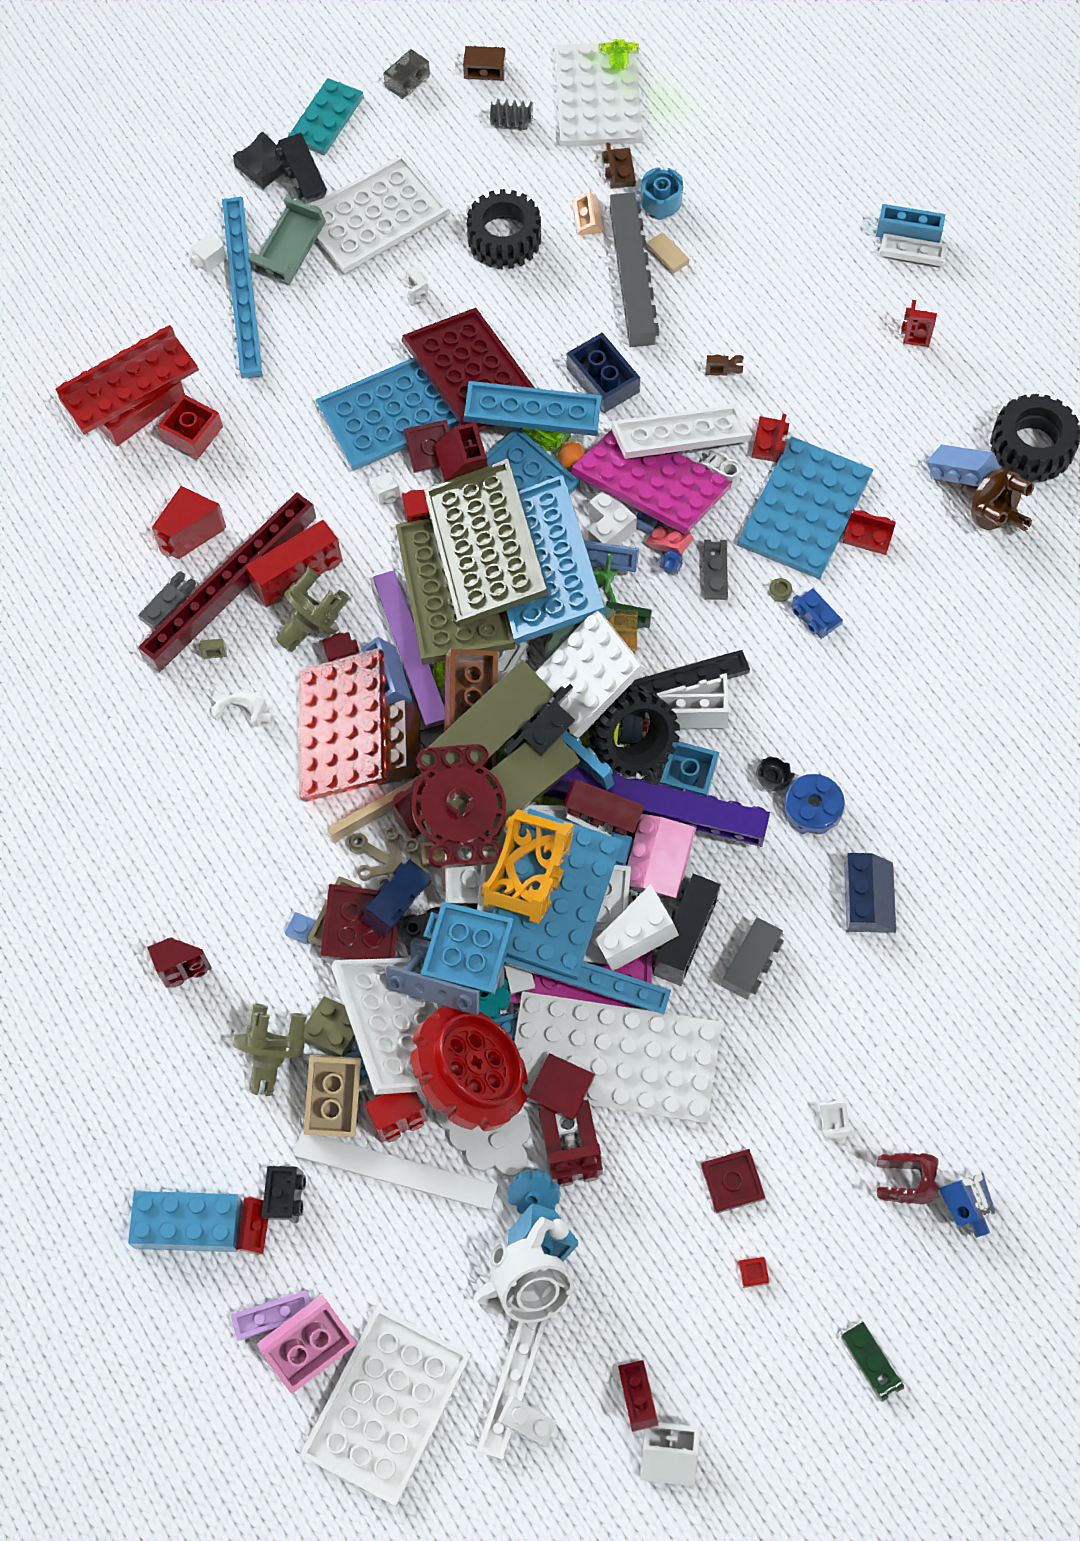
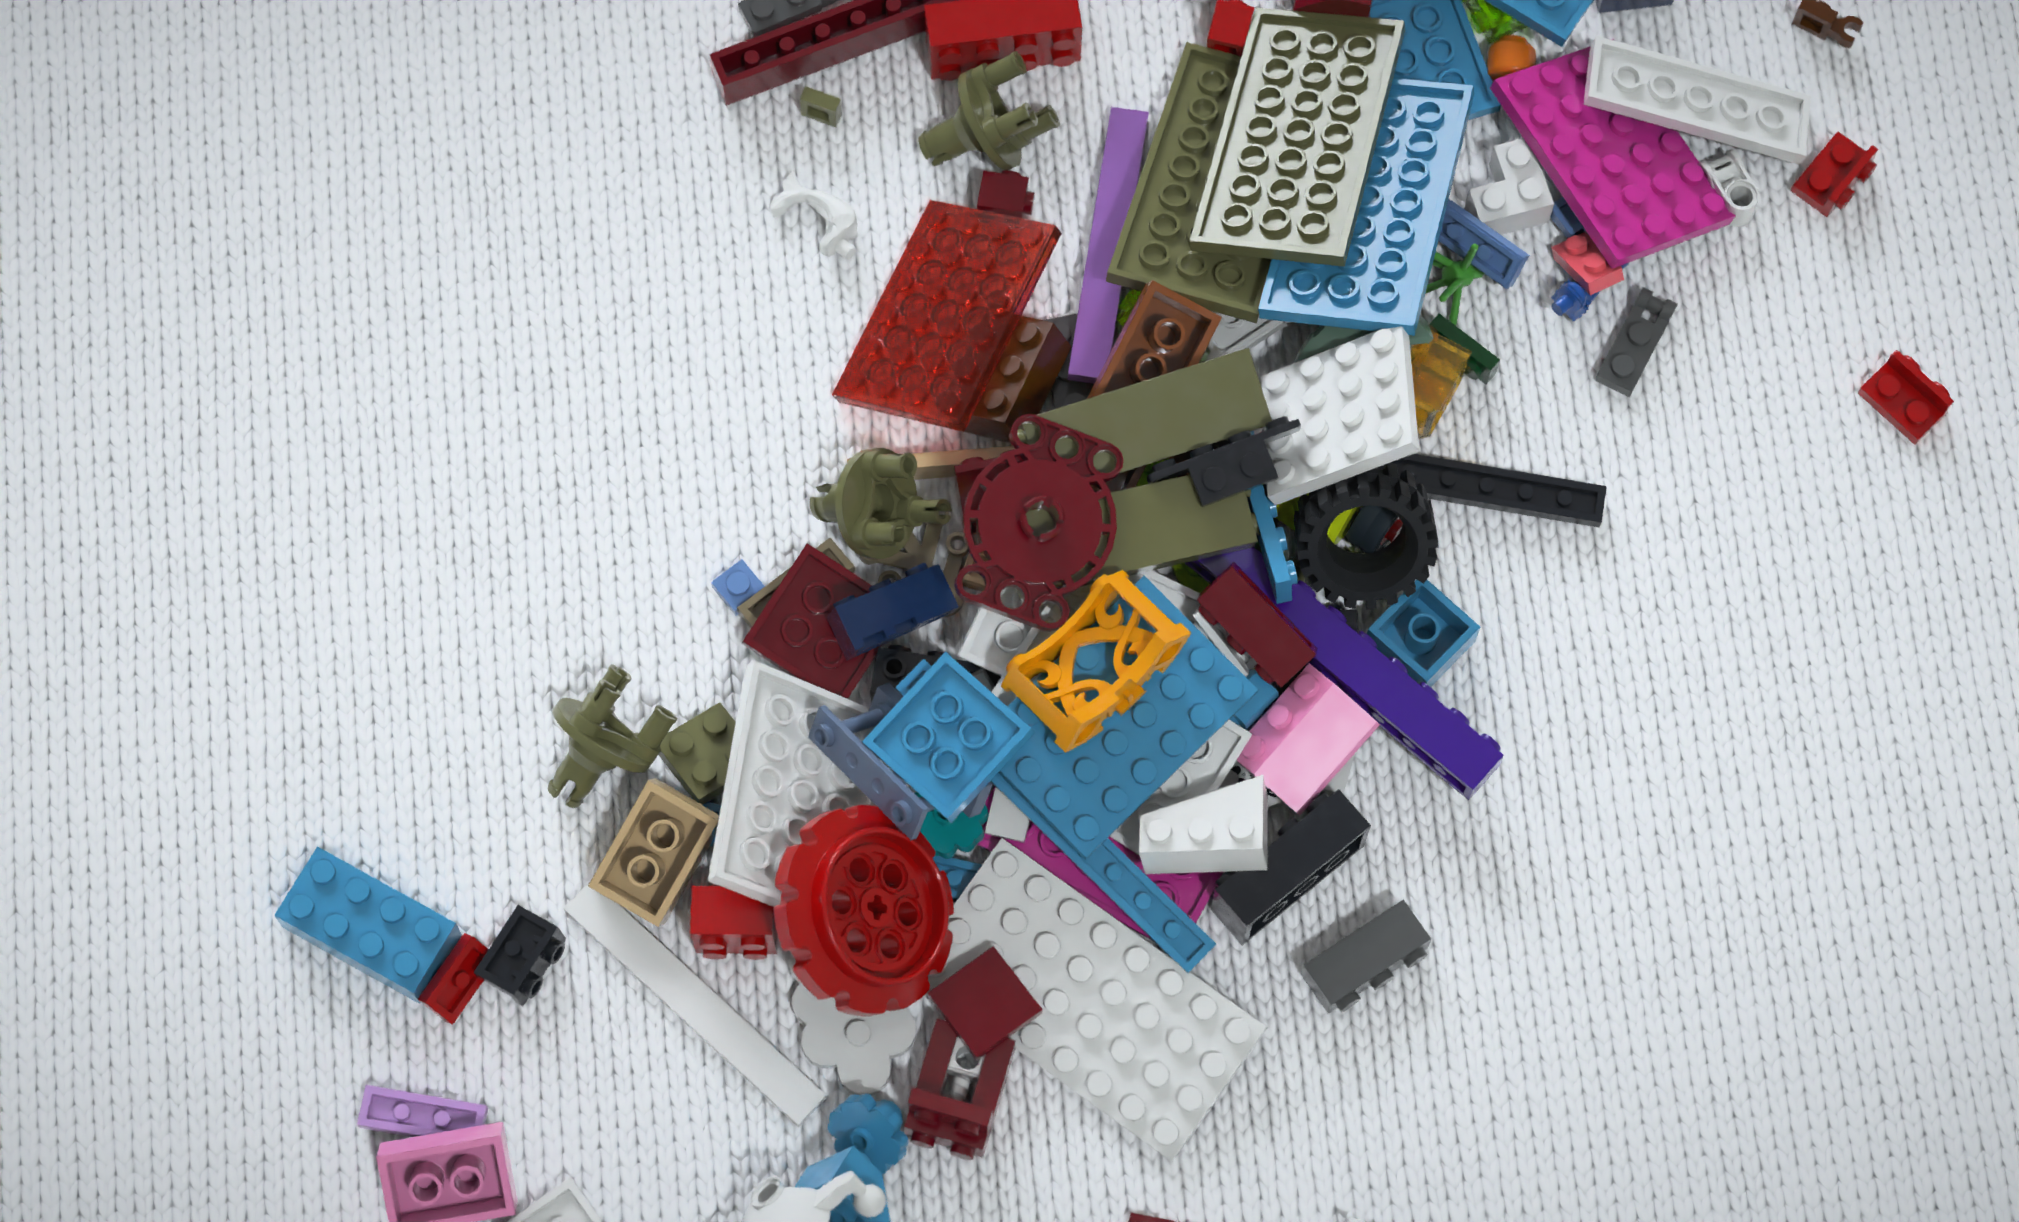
camera: 25 degrees right, 5 degrees up
(178, 961) = (536, 550): dark red slope -> none
(357, 842) = (877, 503): none -> olive piece
(394, 679) = (1058, 284): medium blue brick -> none
(700, 704) = (1490, 539): white wedge -> none
(774, 774) = (1550, 699): black hair -> none
(780, 589) = (1718, 421): olive tile -> none
(805, 507) = (1829, 309): dark azure plate -> none
(809, 818) = (1580, 800): blue plate -> none
(816, 613) = (1753, 484): blue bracket -> none
(869, 893) = (1595, 949): dark blue slope -> none

